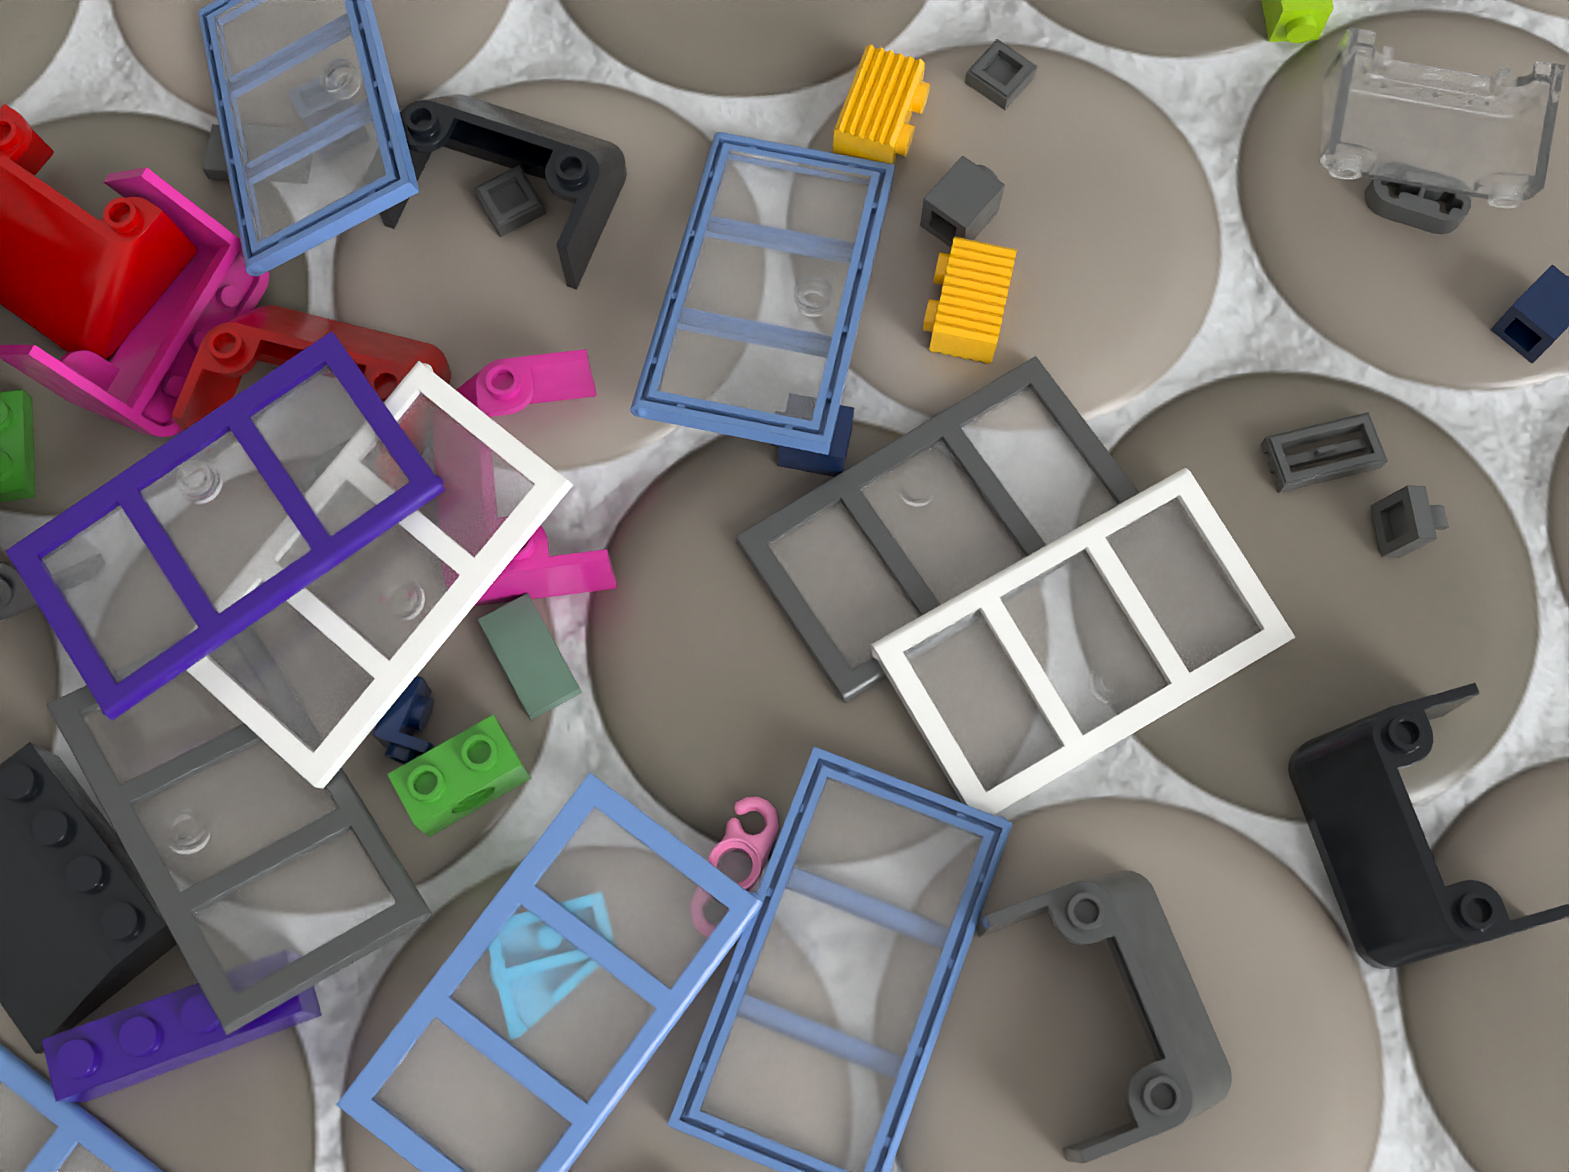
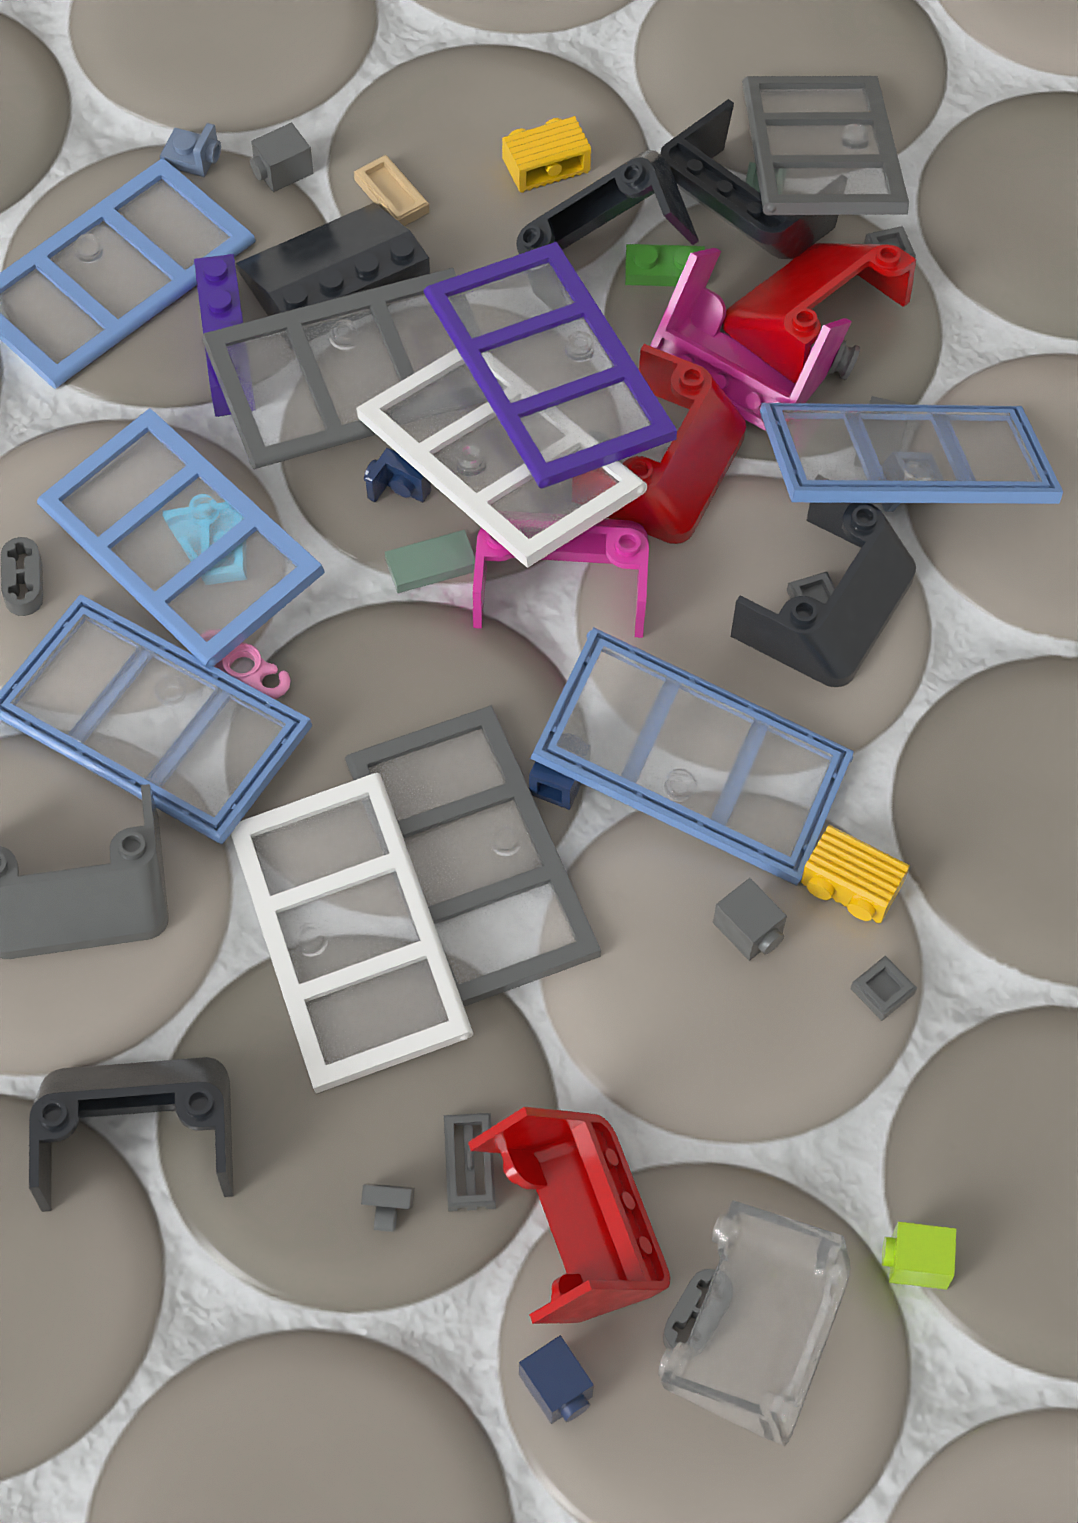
camera: 100 degrees right, 10 degrees down
(459, 776) = (348, 502): bright green brick -> none
(971, 300) = (659, 907): yellow brick -> none
(1374, 299) = (589, 1208): none -> red windscreen

